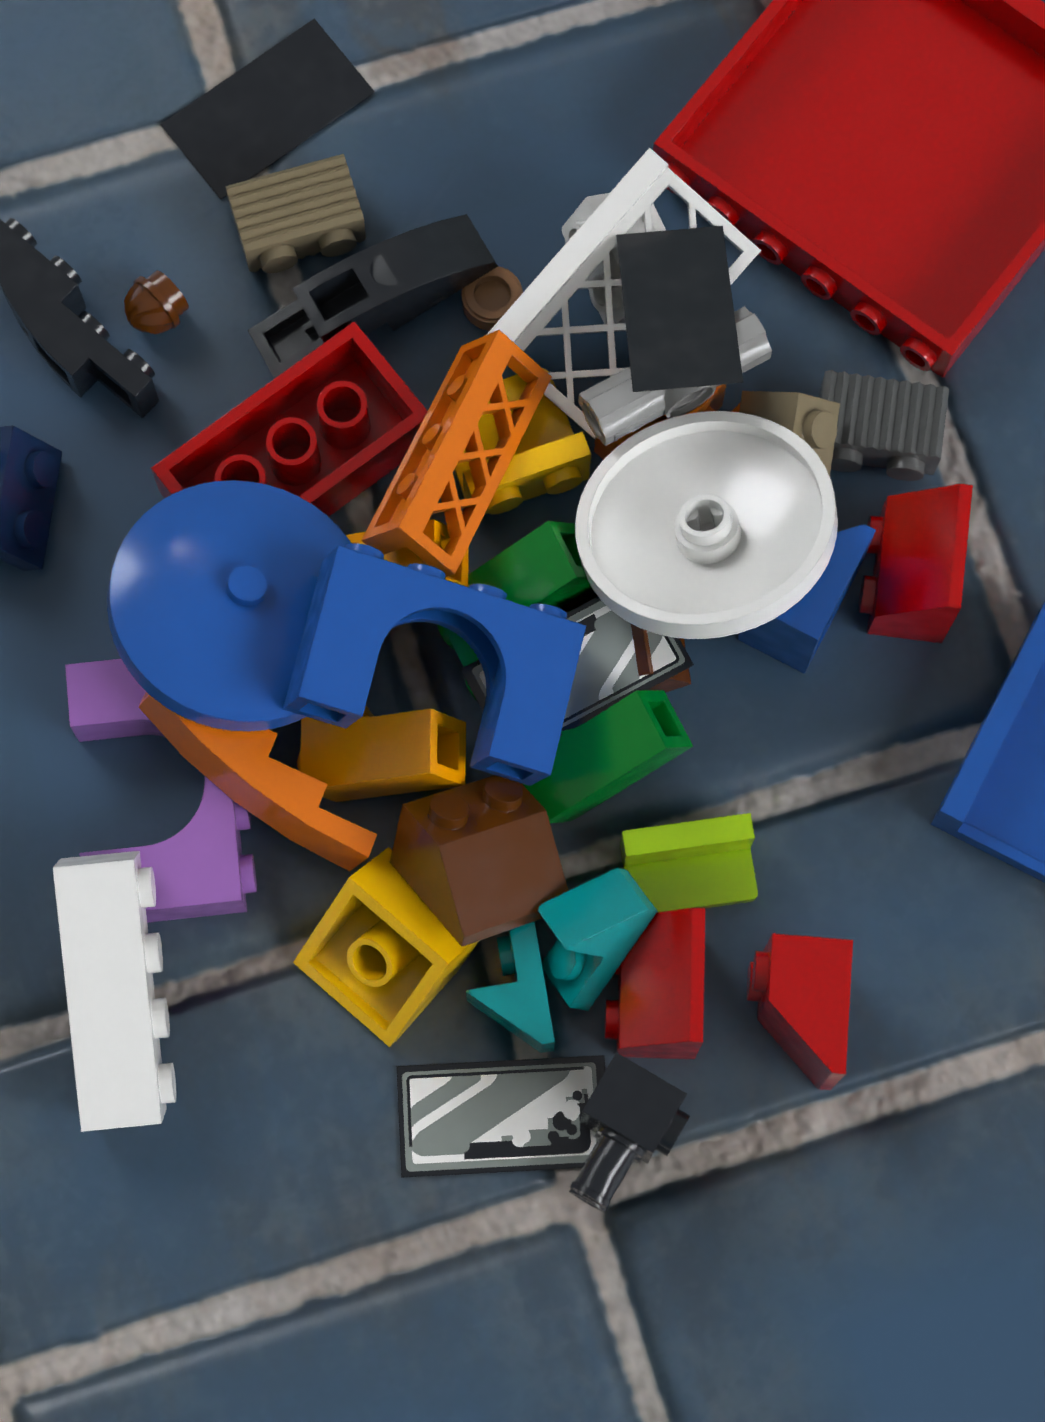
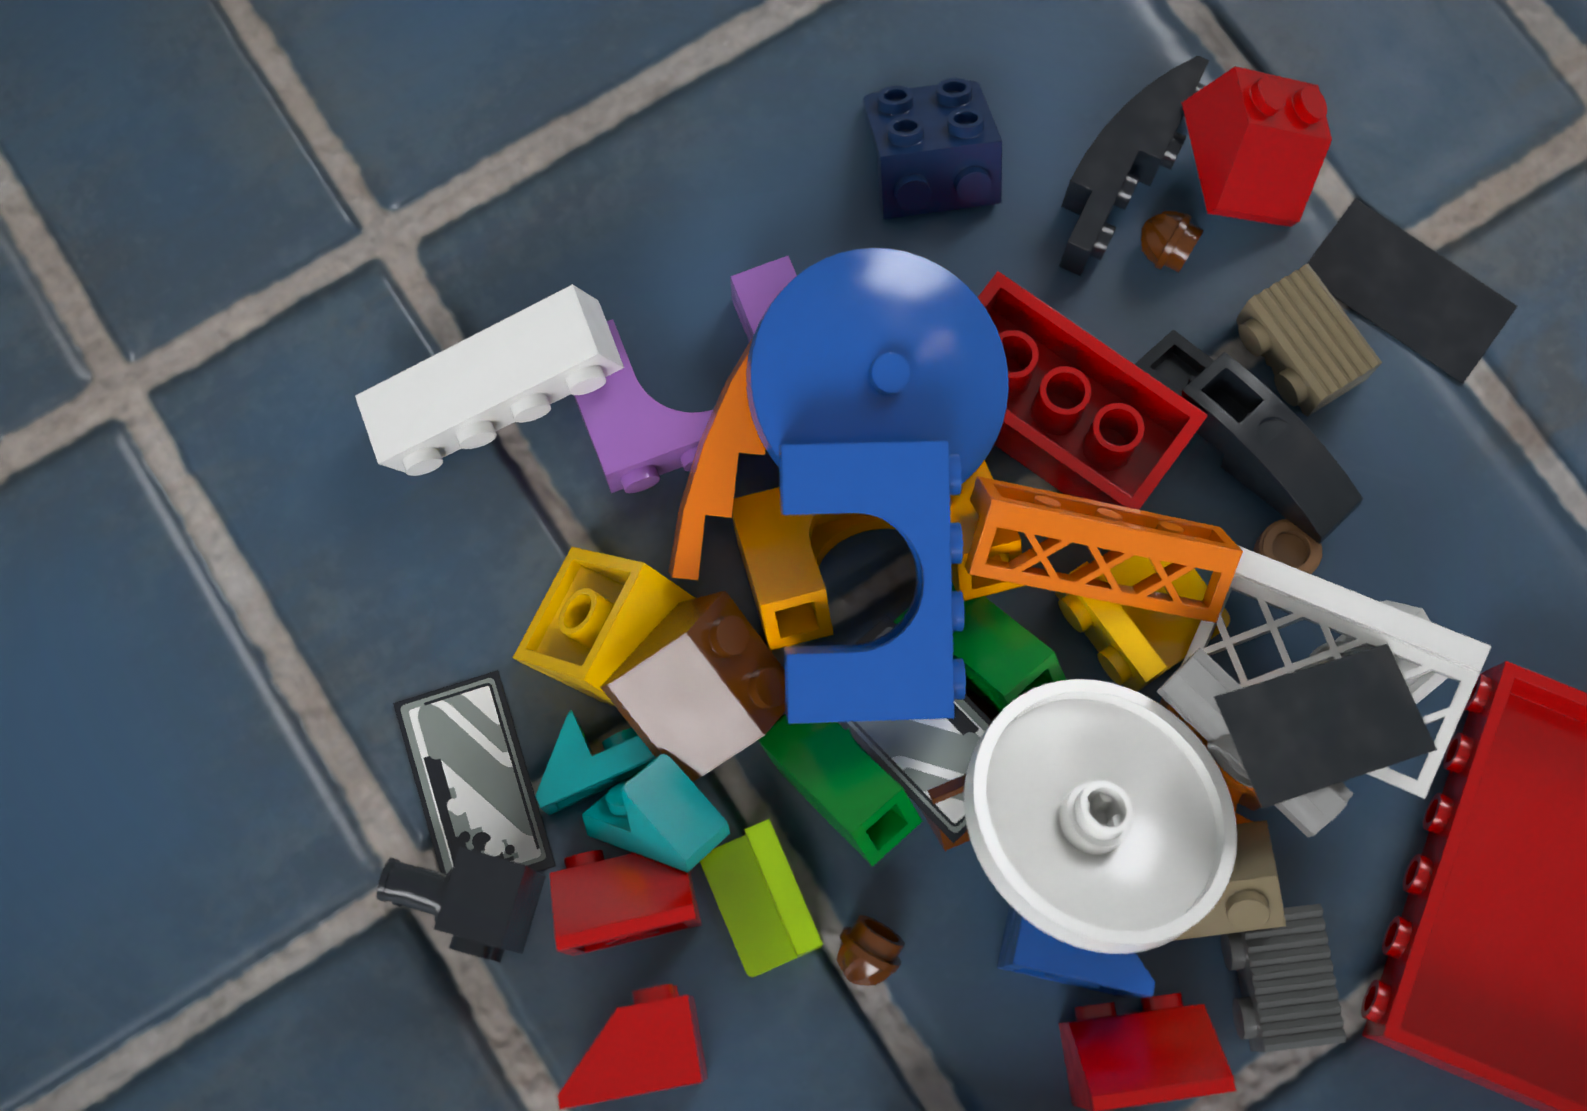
camera: 75 degrees right, 0 degrees up
(91, 192) = (1258, 144): none -> red slope
(764, 779) = (869, 952): none -> reddish brown plate

